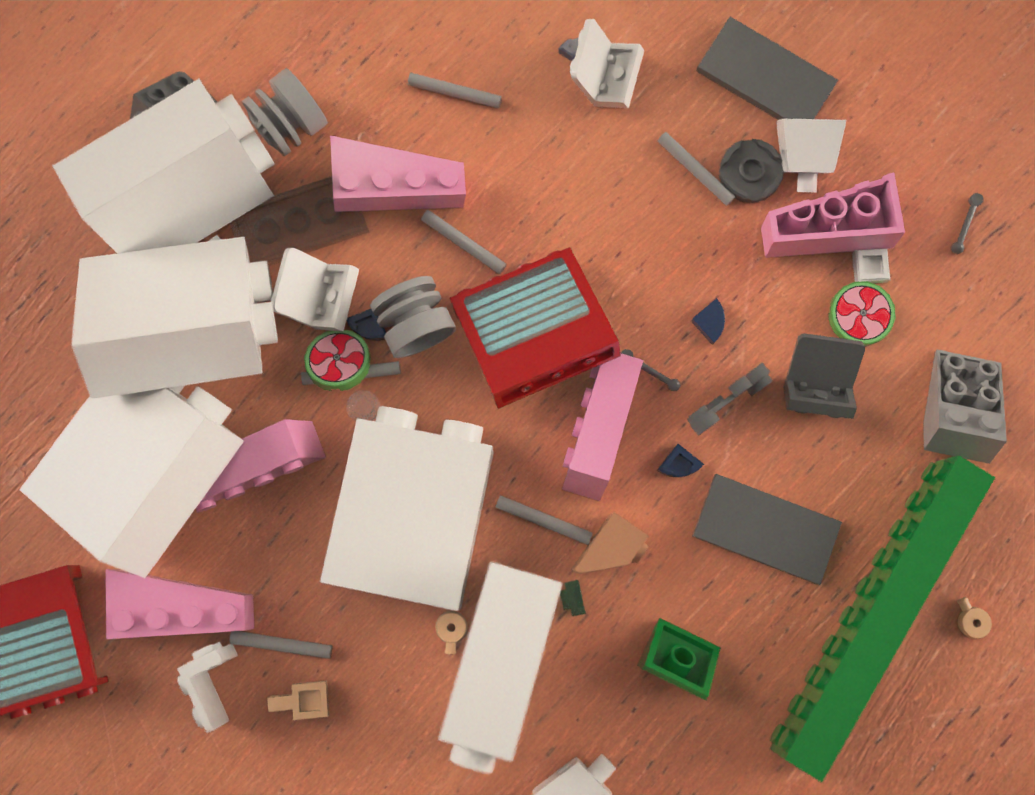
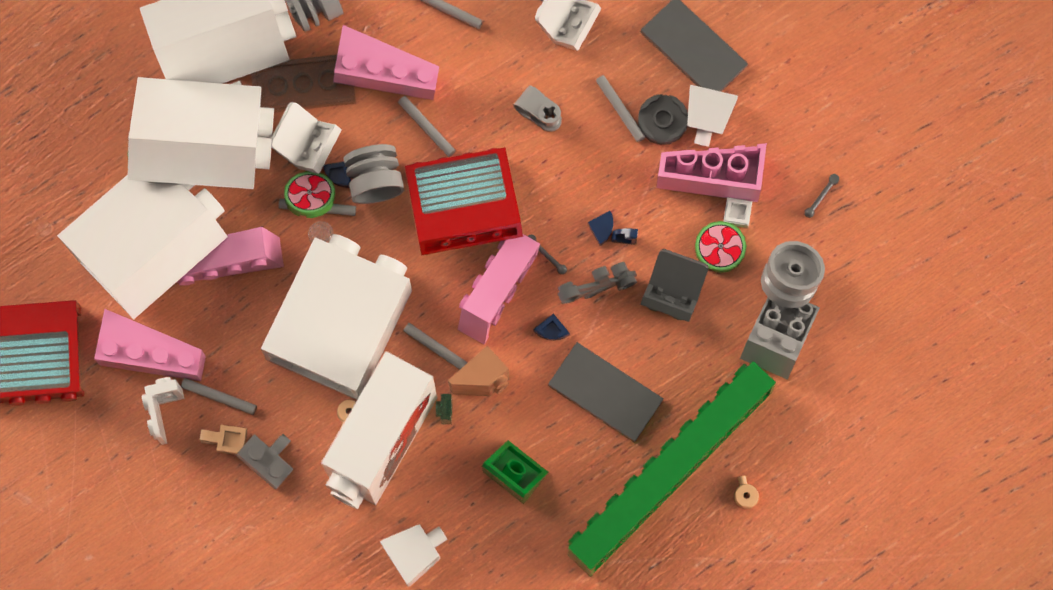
camera: 15 degrees right, 5 degrees down
(360, 717) = (266, 460): none -> light grey plate
(594, 188) = (536, 106): none -> light grey piece
(743, 326) = (625, 236): none -> dark blue tile
(968, 330) = (792, 274): none -> light grey wheel

